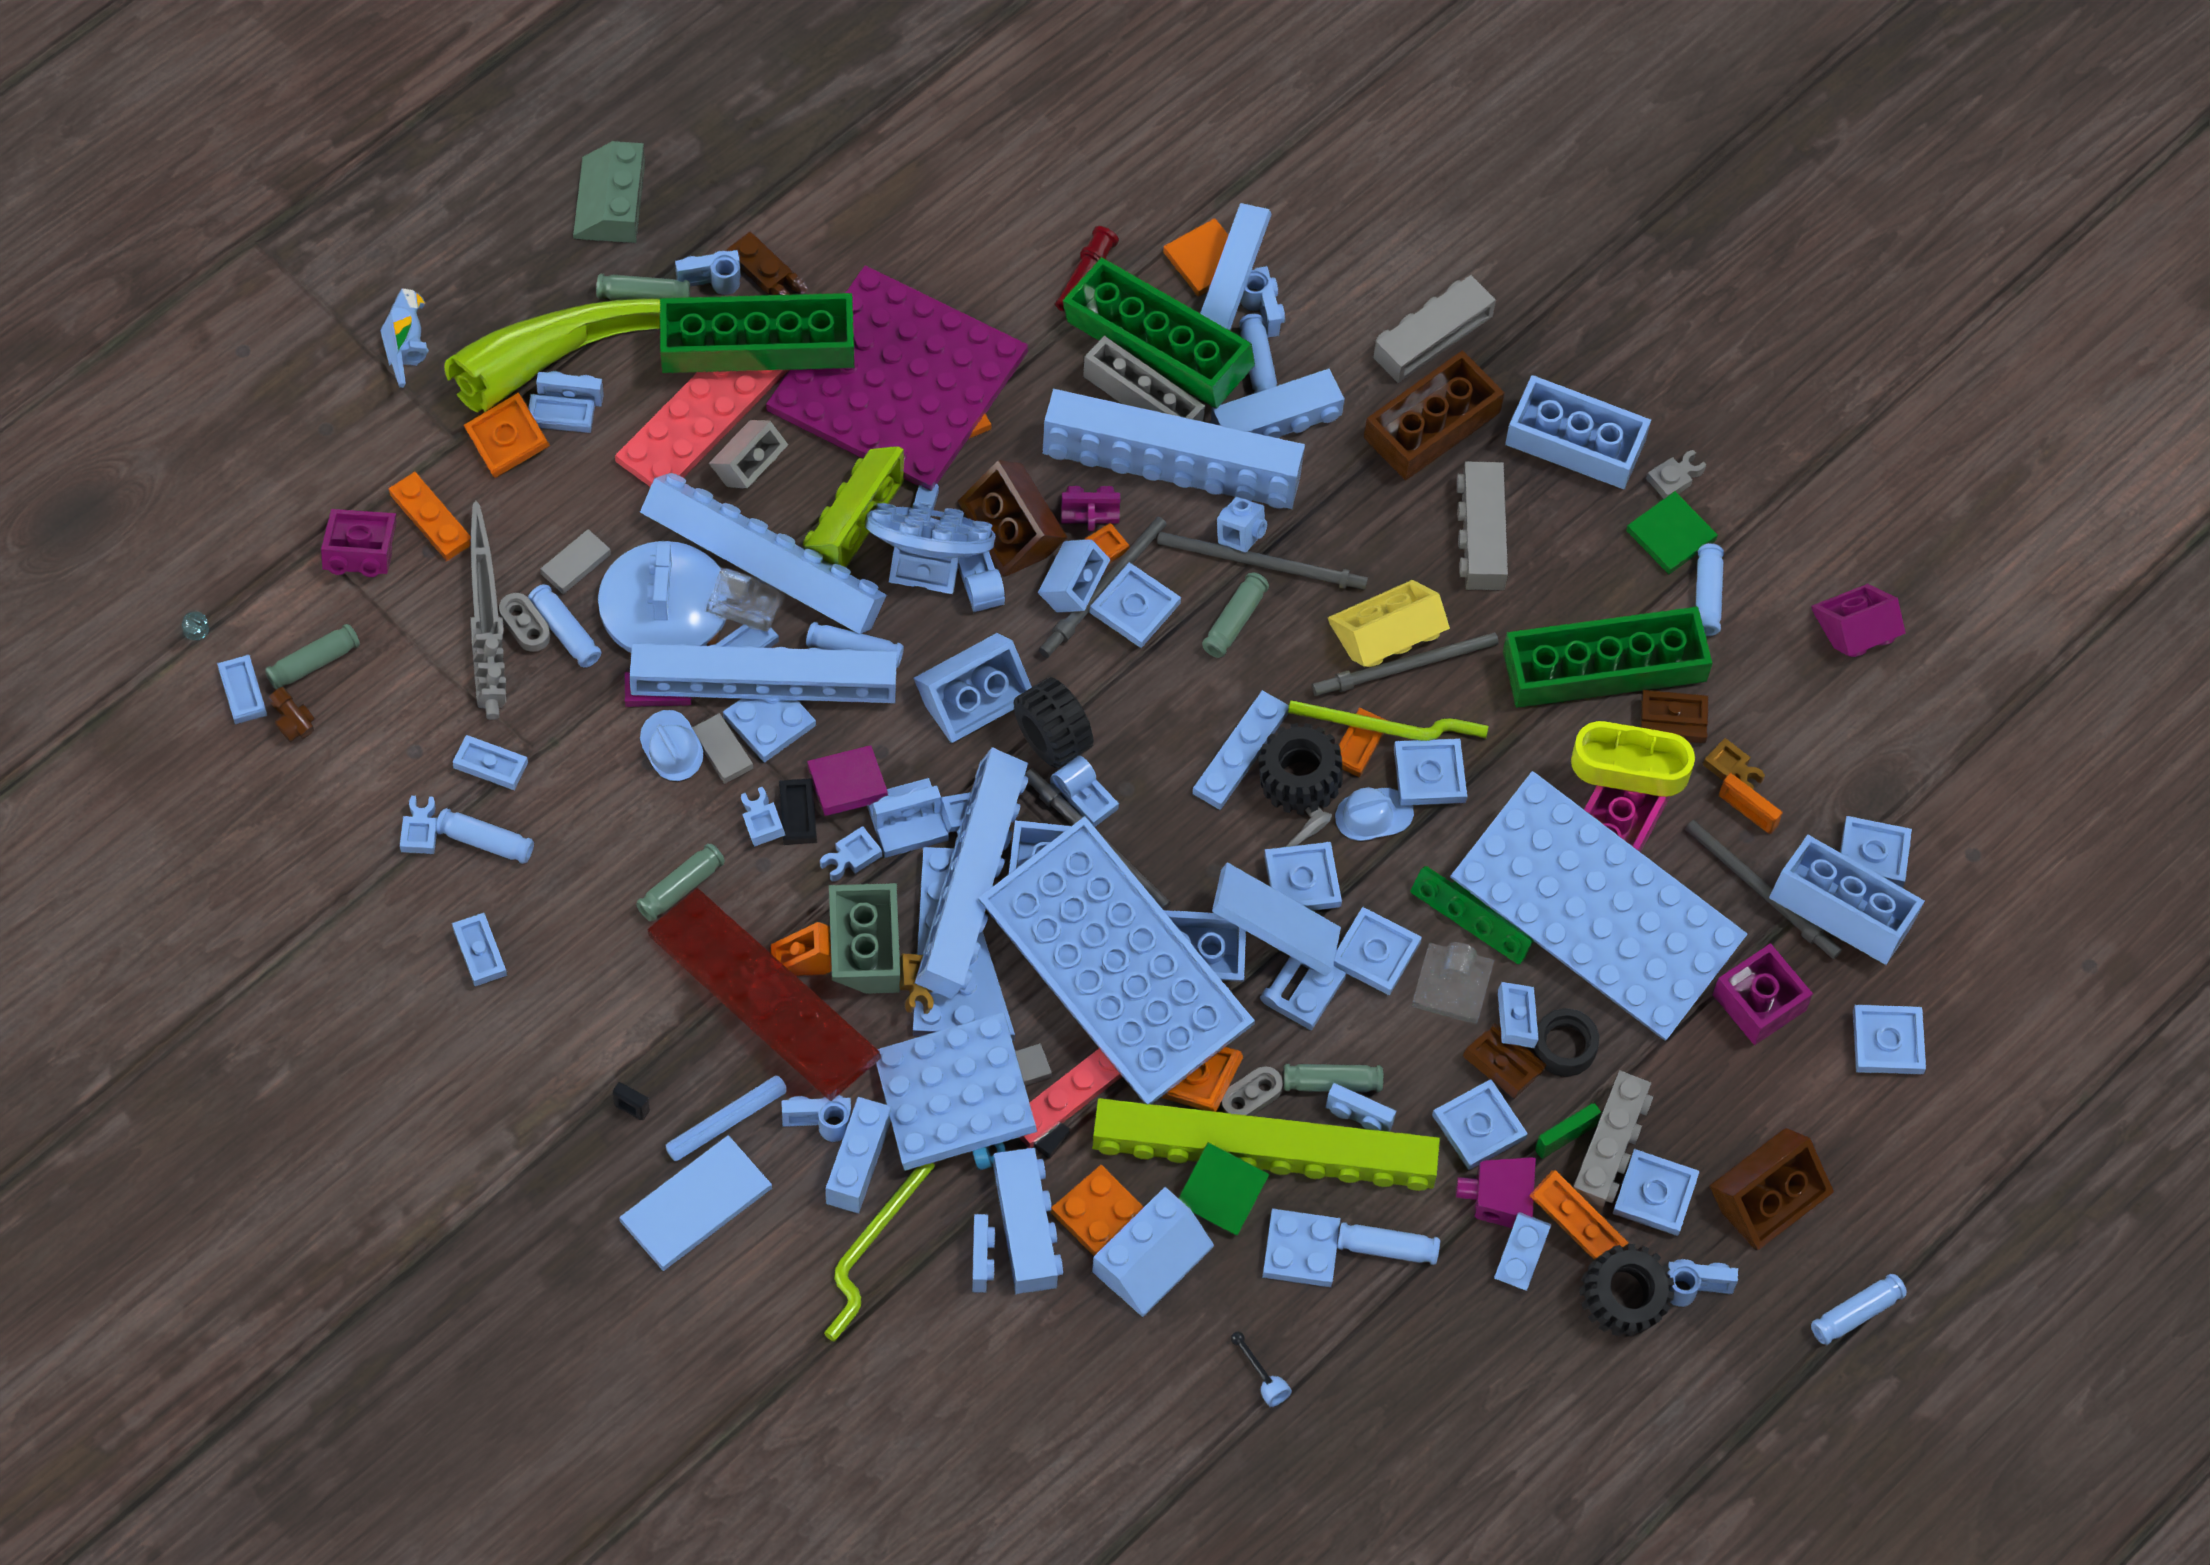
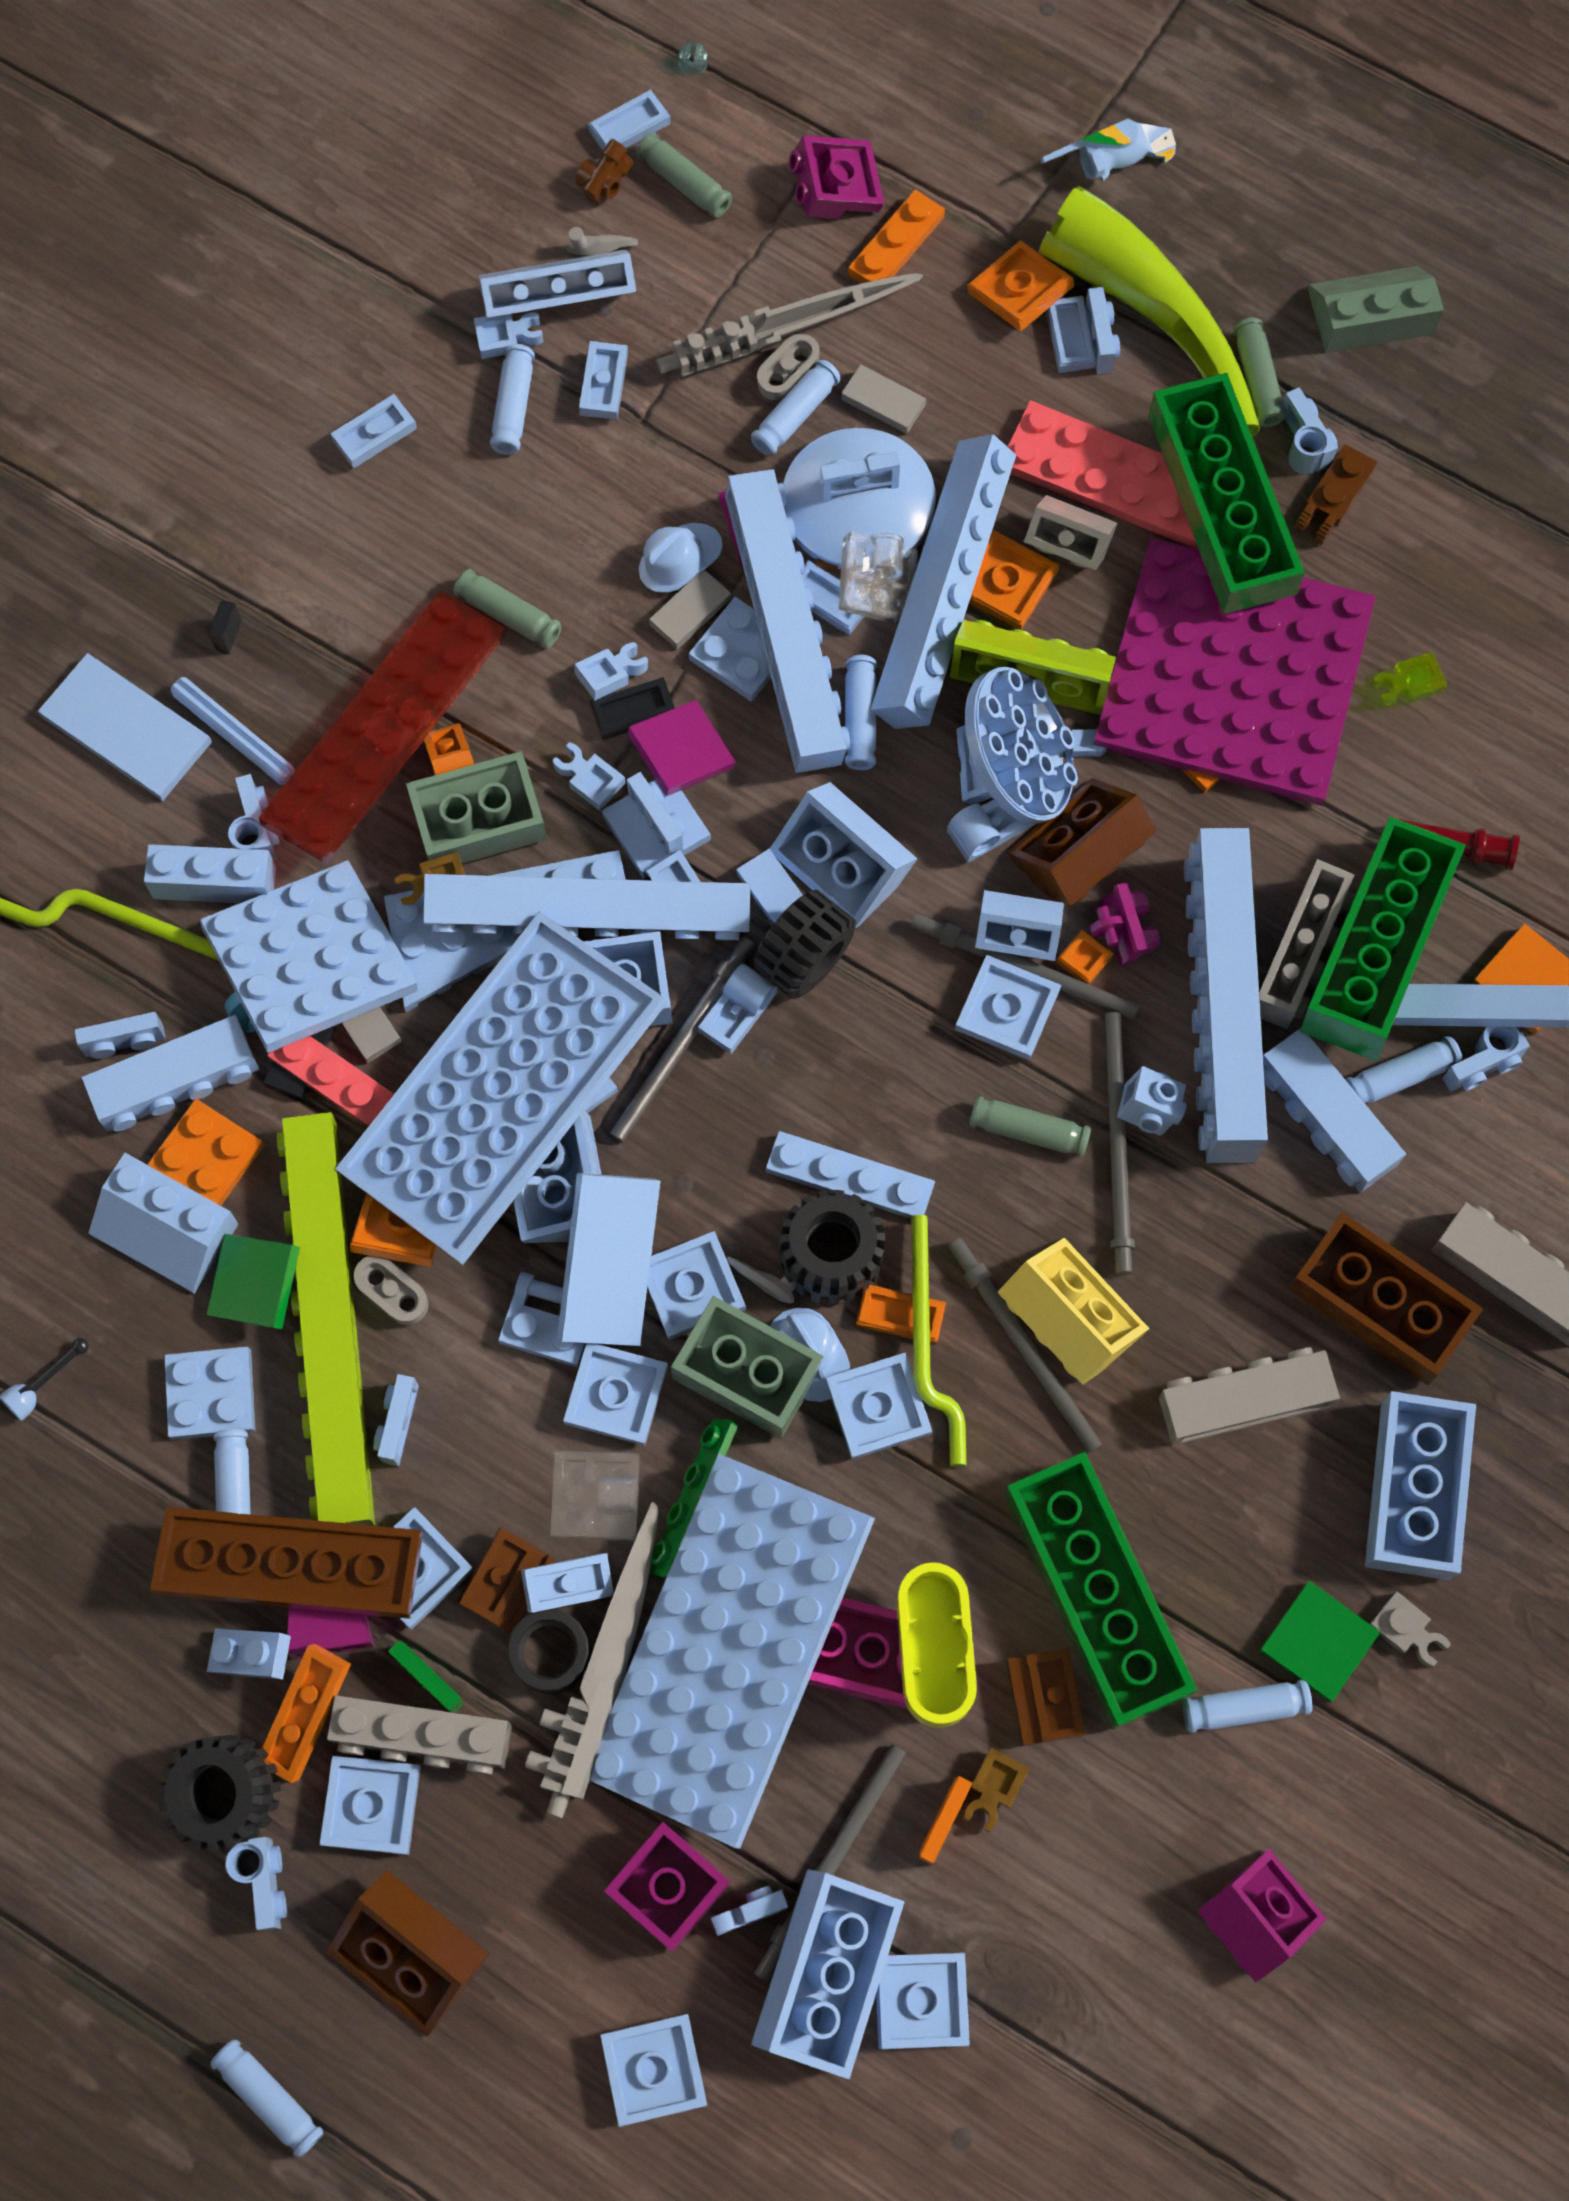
camera: 80 degrees right, 10 degrees up
(353, 738) = (596, 244): none -> light grey bar
(391, 772) = (557, 283): none -> light blue brick
(774, 506) = (1011, 580): none -> orange tile
(943, 260) = (1414, 677): none -> clear neon green plate
(1003, 737) = (769, 884): none -> light blue tile
(1322, 1076) = (433, 1379): sand green axle -> none
(1382, 849) = (746, 1367): none -> sand green slope
(1463, 1199) = (287, 1562): none -> reddish brown plate
(1614, 1019) = (585, 1721): none -> light grey piece
(1787, 940) = (759, 1906): none -> light blue plate

